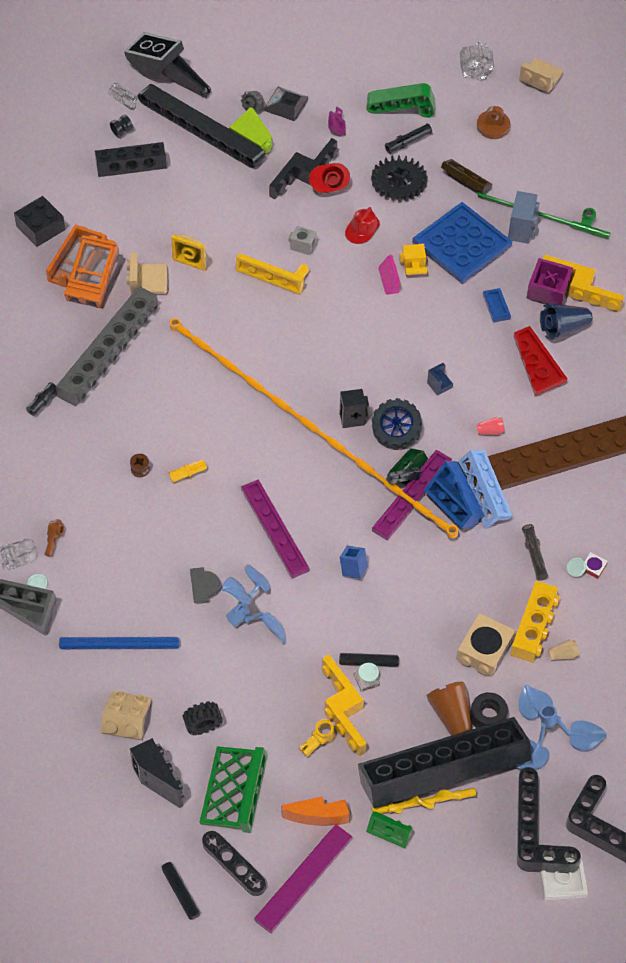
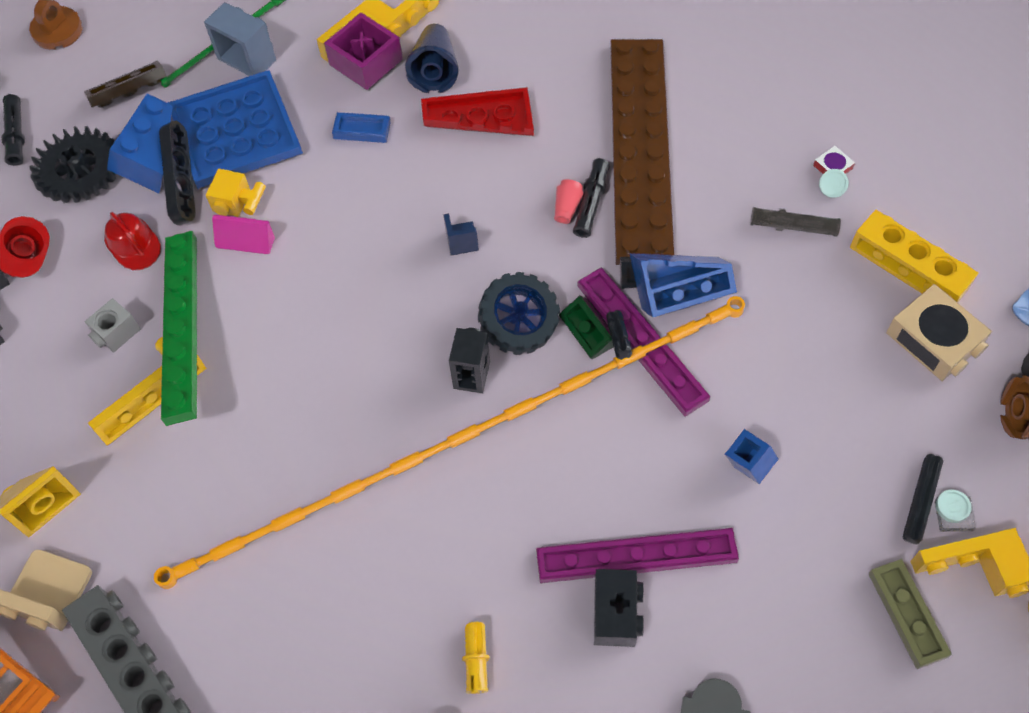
camera: 65 degrees left, 5 degrees up
(239, 523) = (611, 627): none -> black brick
(241, 611) = (797, 656): medium blue plant -> none
(293, 663) = (909, 614): none -> olive plate
(314, 268) = (179, 330): none -> green plate
(413, 228) = (179, 203): none -> black beam
(425, 201) = (138, 148): none -> blue wedge
(486, 484) = (672, 232): light blue fence -> none
(501, 438) = (598, 172): none -> black pin
(565, 650) = (967, 239): tan cone -> none

